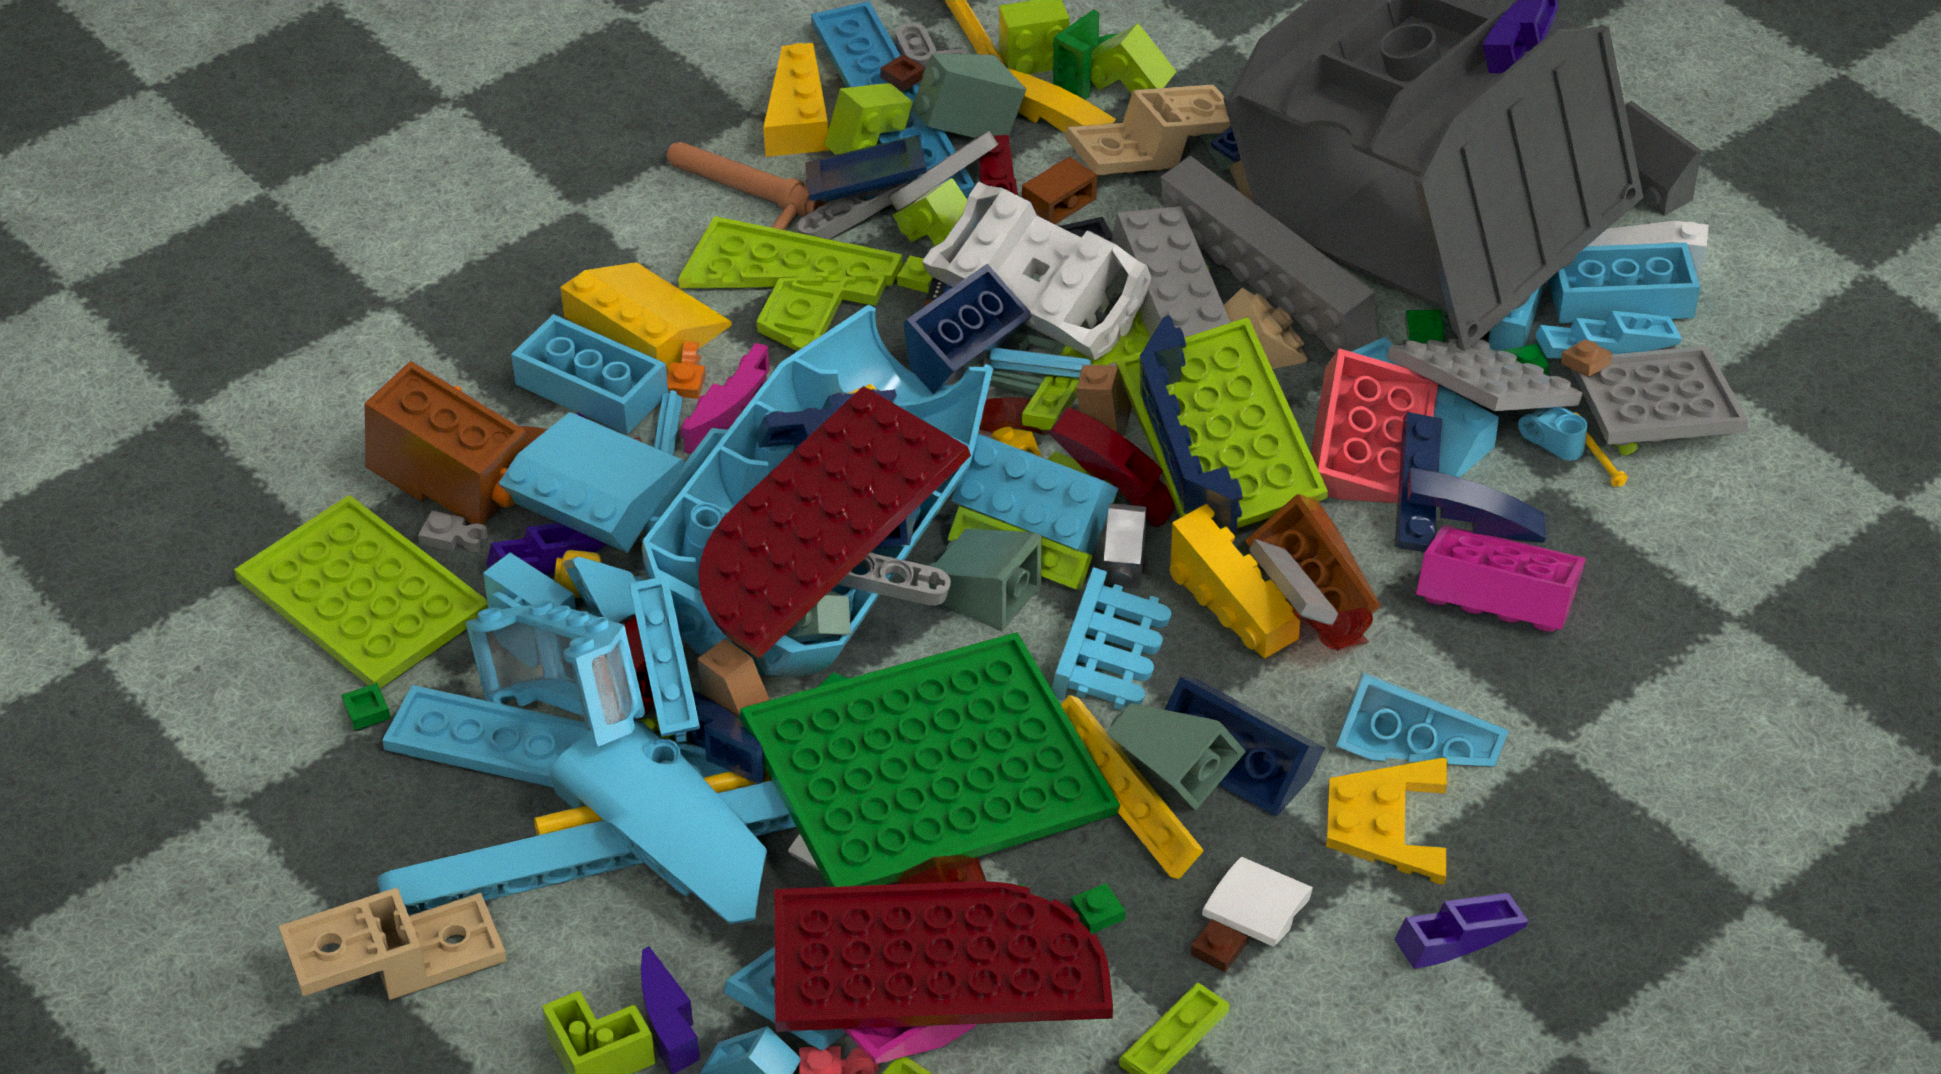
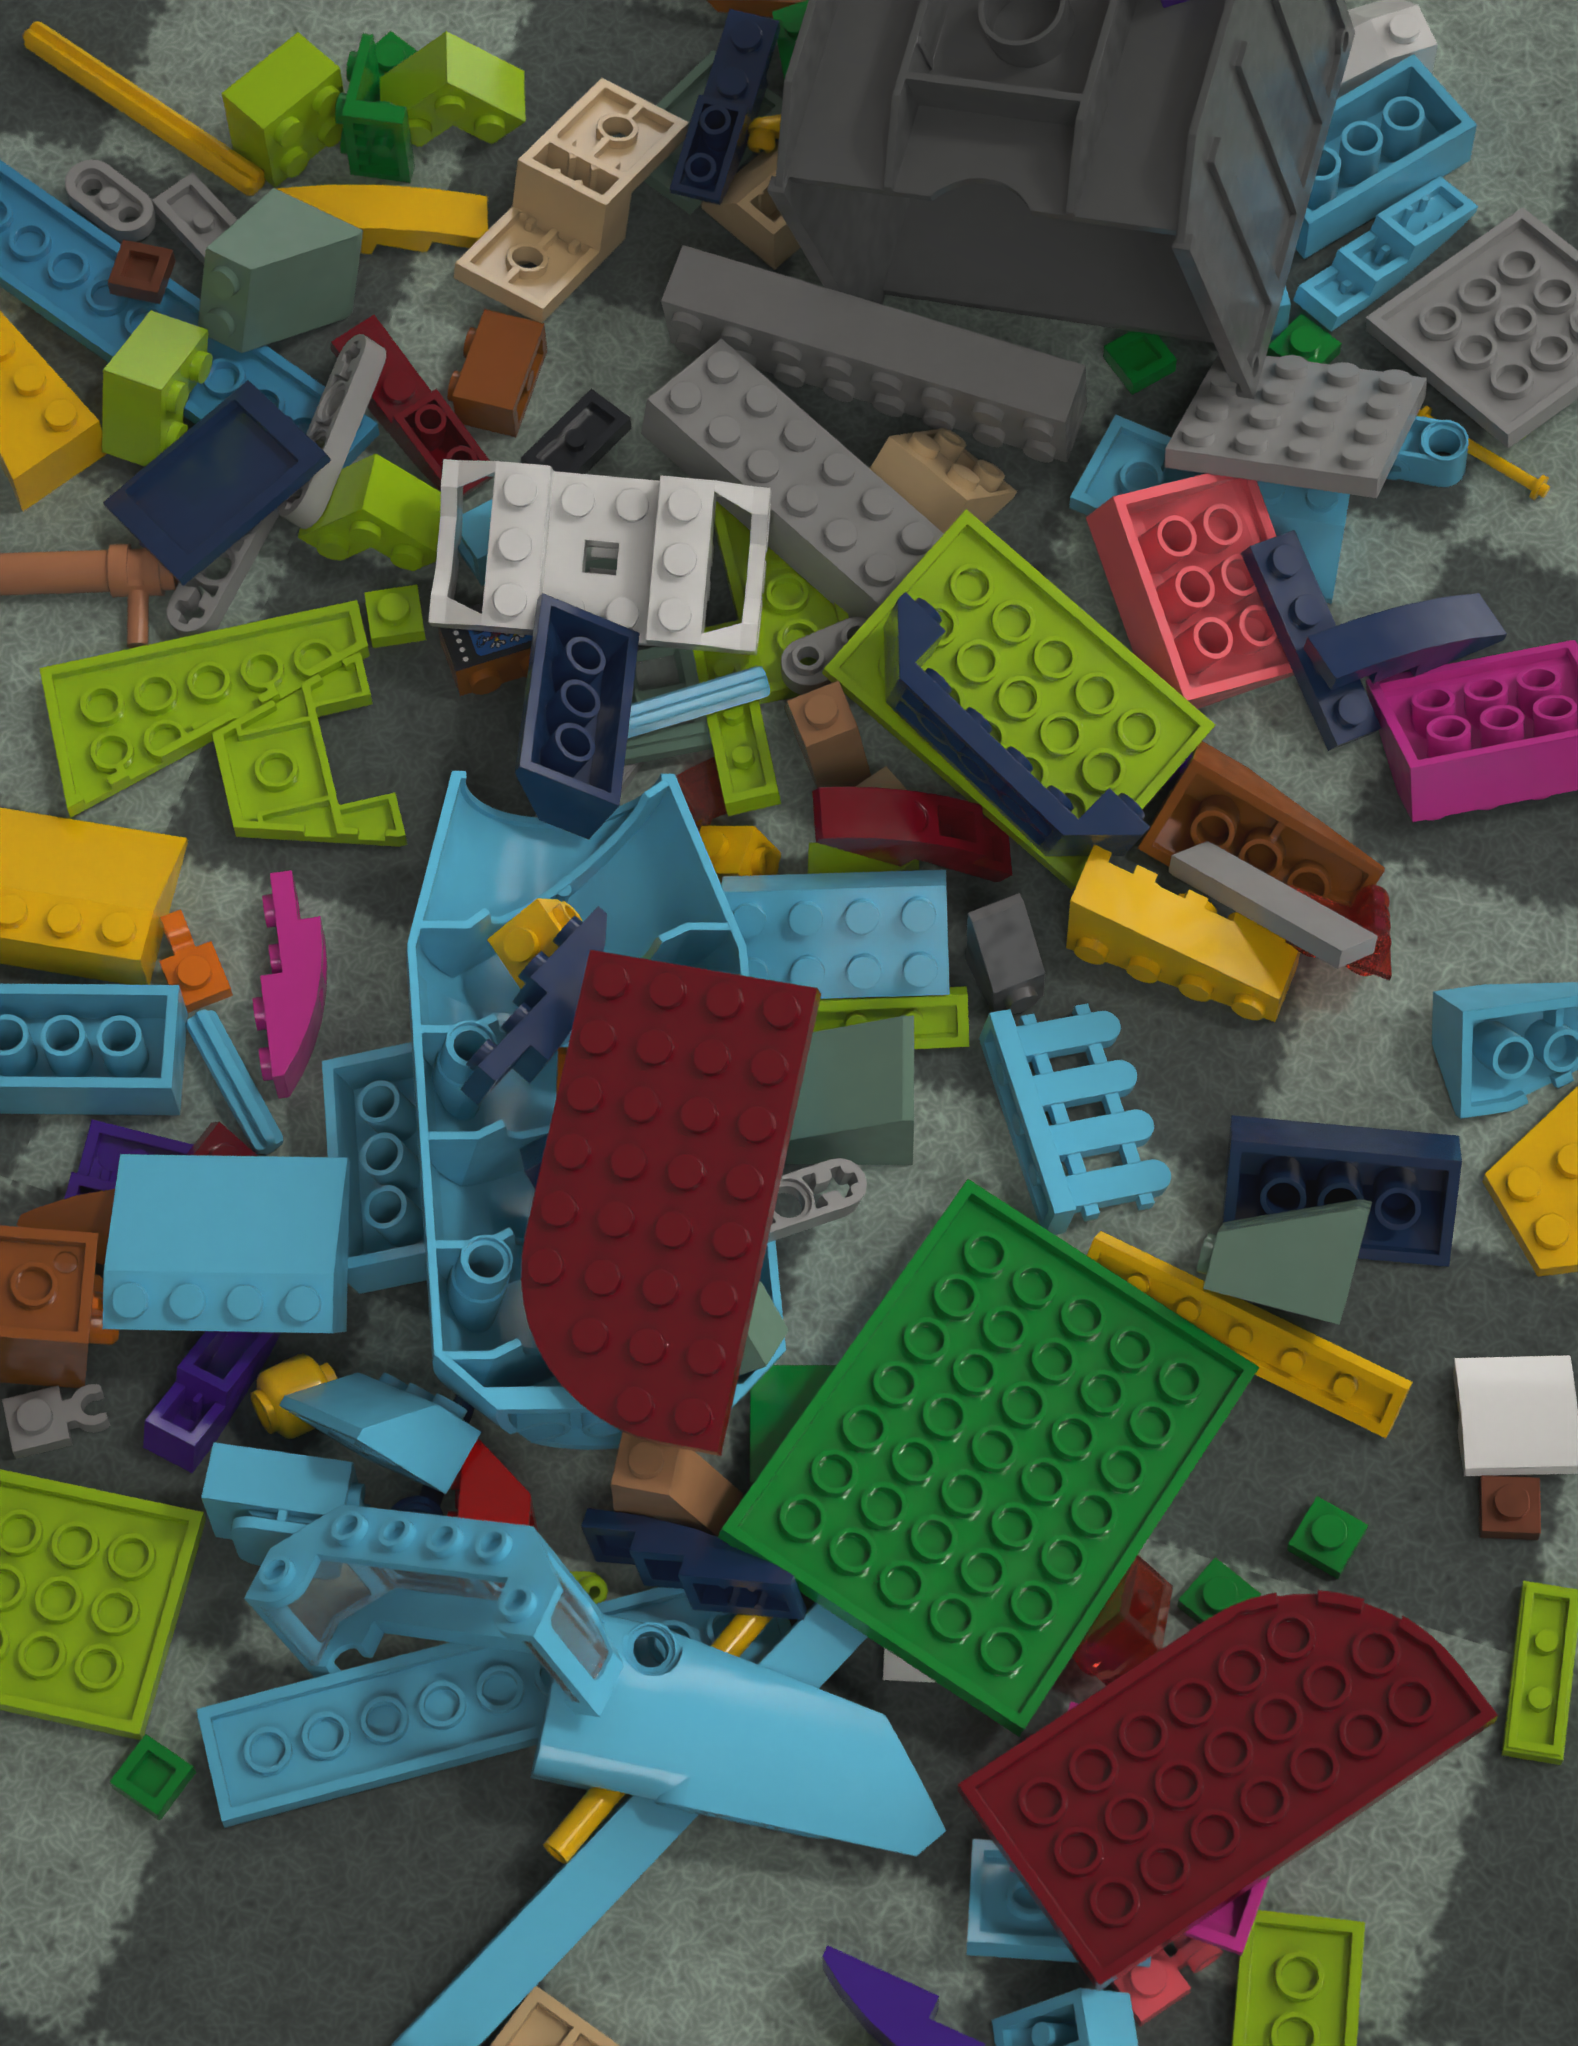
camera: 30 degrees left, 20 degrees up
(664, 657) = (583, 1517): medium azure fence -> none
(1586, 358) = (1391, 312): medium nougat plate -> none

